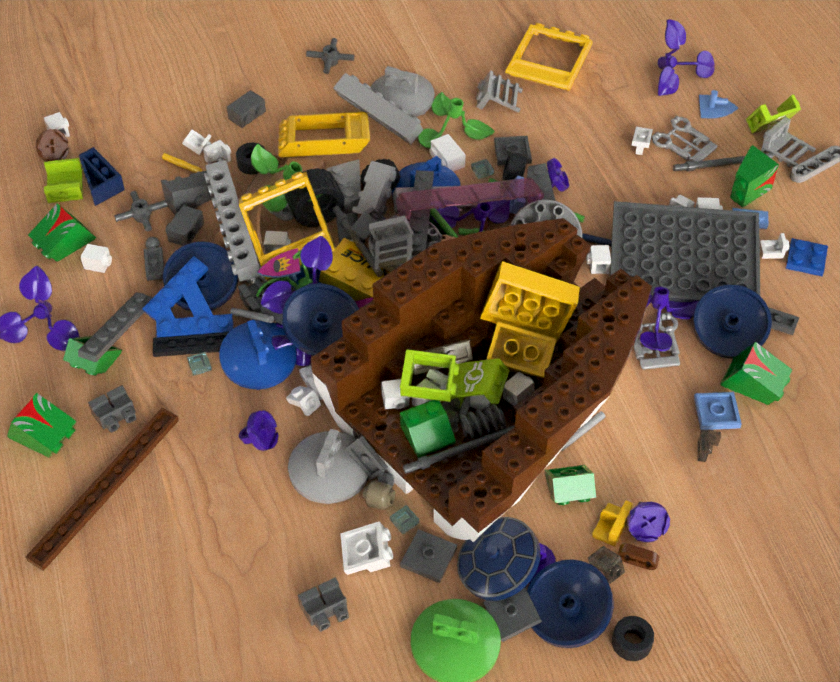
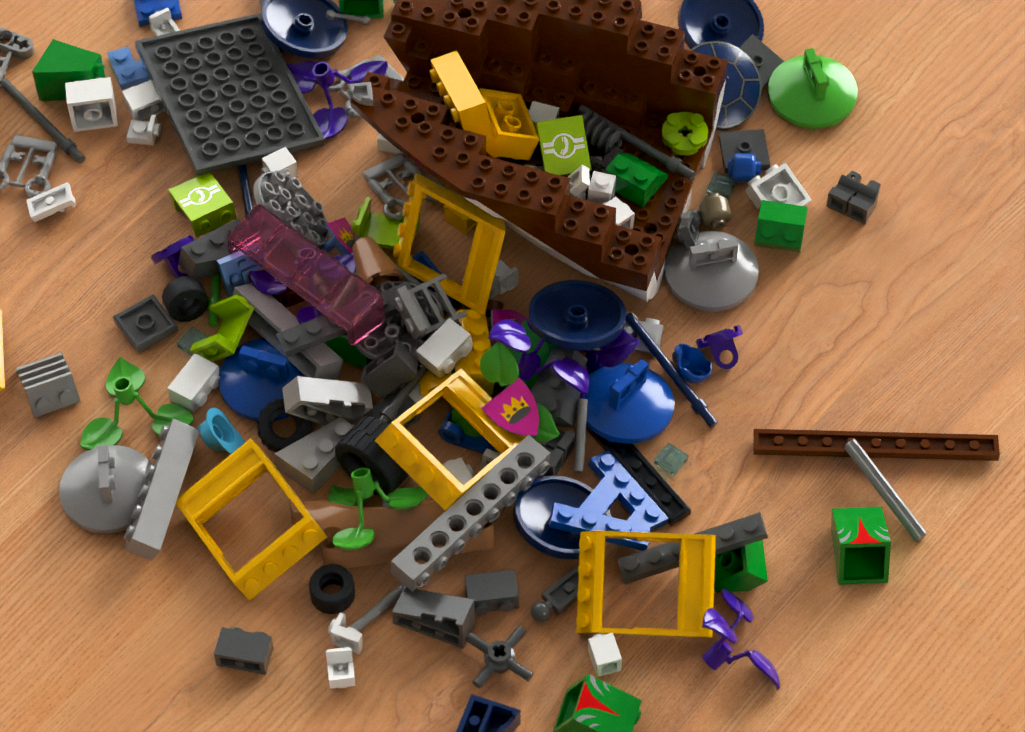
camera: 120 degrees left, 5 degrees up
(65, 466) = (885, 490): none -> light grey axle
(80, 302) = (694, 583): none -> yellow window
(110, 414) = (787, 495): dark grey hips -> none
(181, 163) = (385, 671): yellow piece -> none
(225, 397) = (698, 405): none -> dark blue bar
(255, 402) = (691, 363): none -> blue hair
(329, 526) = (780, 226): none -> green slope
(330, 55) = (81, 607): dark grey bar -> none
(357, 249) = (445, 348): none -> white brick
(396, 148) = (219, 432): none -> medium azure piece
(404, 534) = (743, 167): none -> blue head
(430, 359) = (601, 188): lime window -> none
(438, 479) = (685, 121): none -> lime plate
(464, 164) = (235, 315): none -> lime panel
(560, 220) = (361, 93): none -> light grey tile
(591, 201) = (203, 203): none -> lime panel
(608, 563) = (657, 14): clear smoke bracket -> none
(715, 176) = (91, 104): none -> white brick
(733, 342) = (331, 14): none -> light grey hinge

